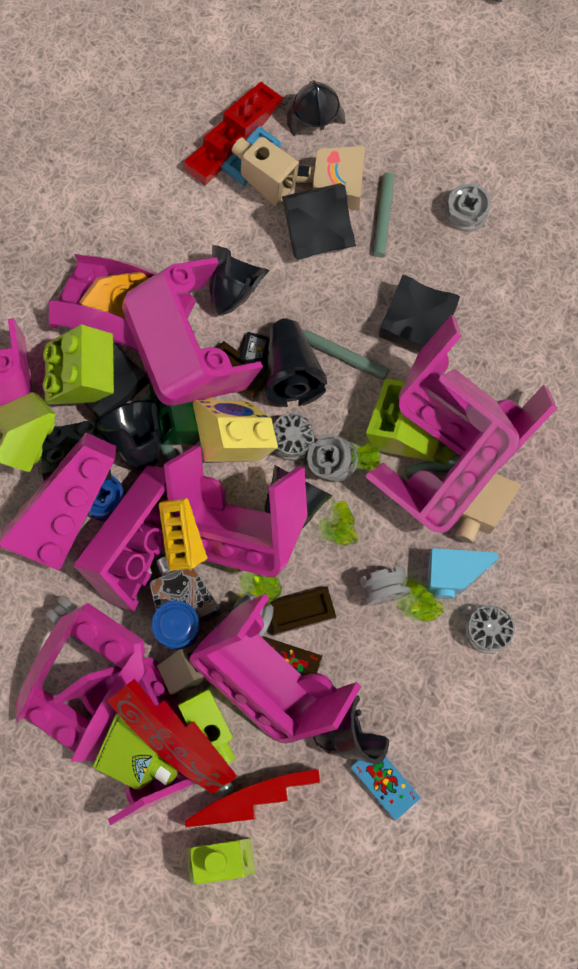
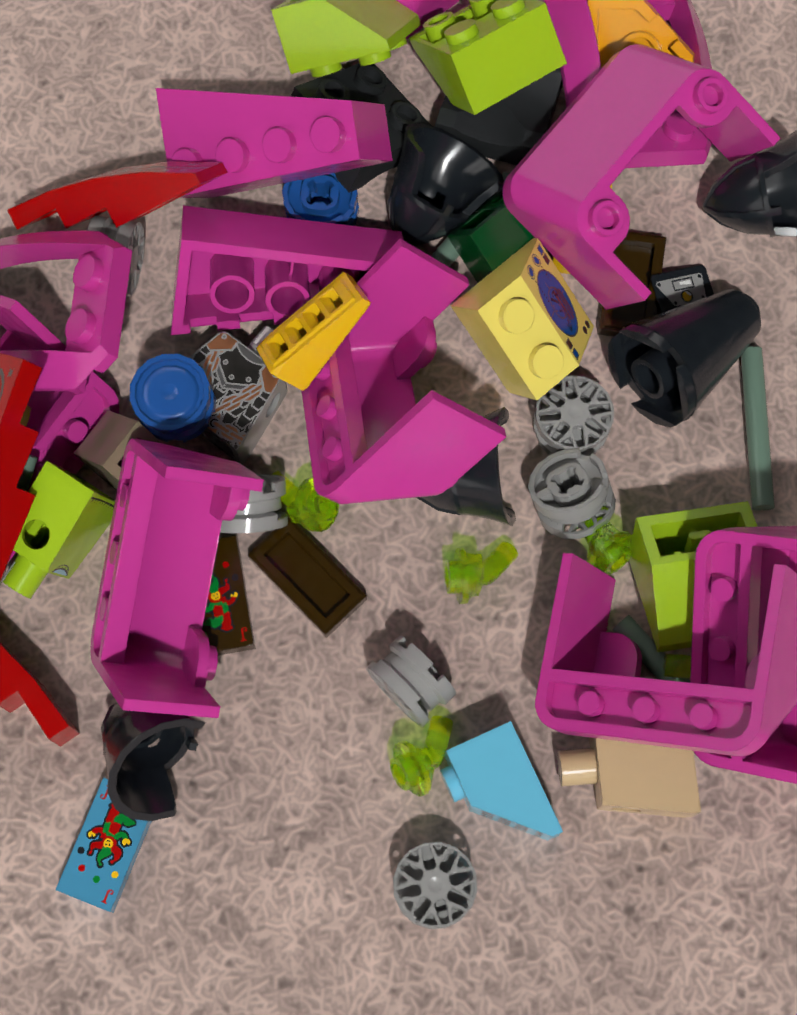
camera: 60 degrees right, 0 degrees up
(45, 590) = (123, 192): none -> red slope

